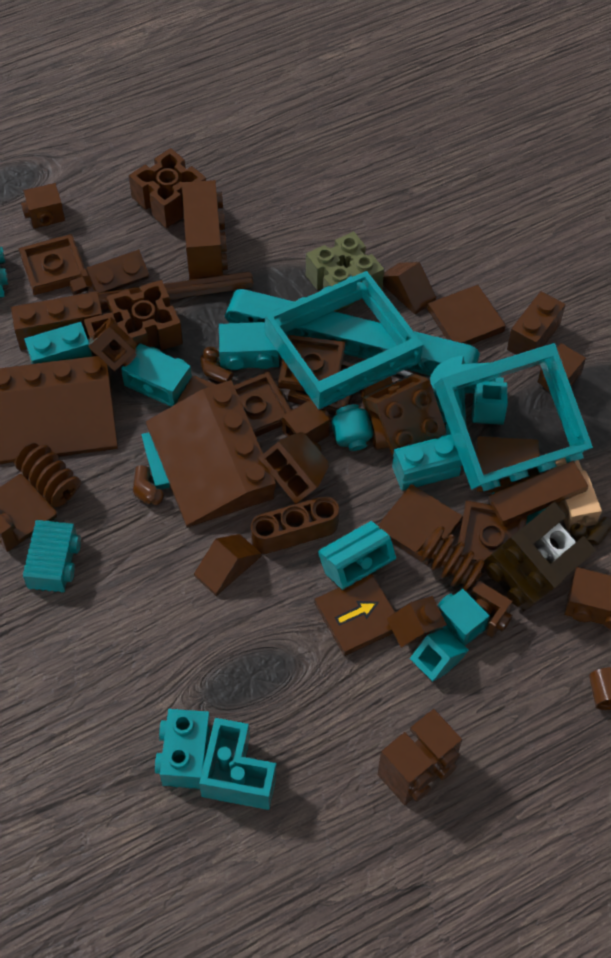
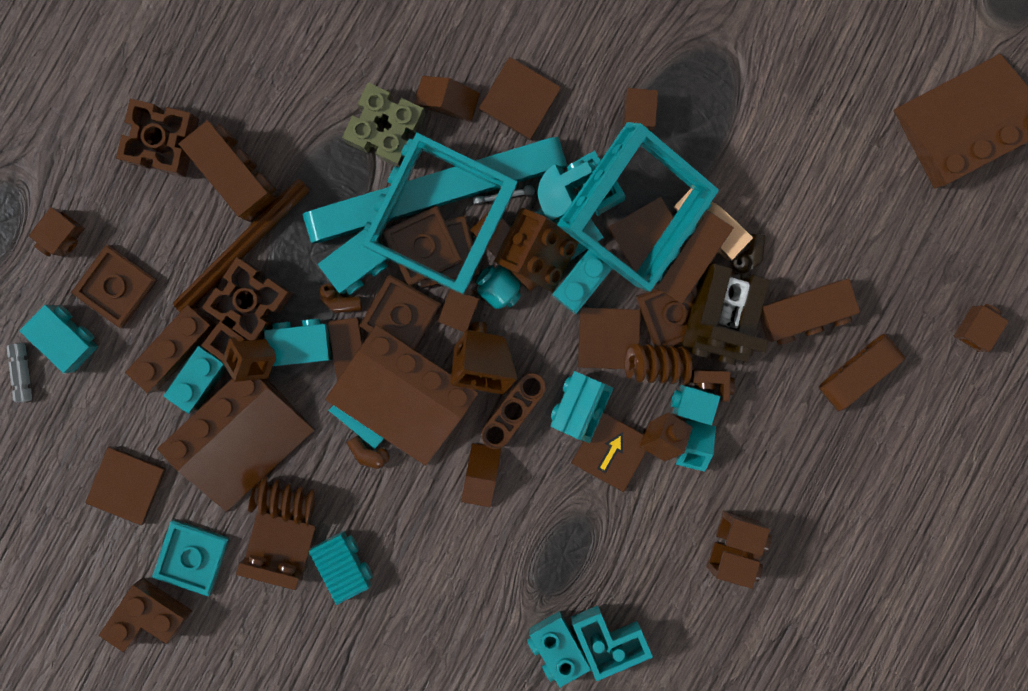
camera: 35 degrees left, 30 degrees up
(111, 274) = (177, 266): reddish brown hinge -> none
(536, 324) = (590, 74): reddish brown brick -> none

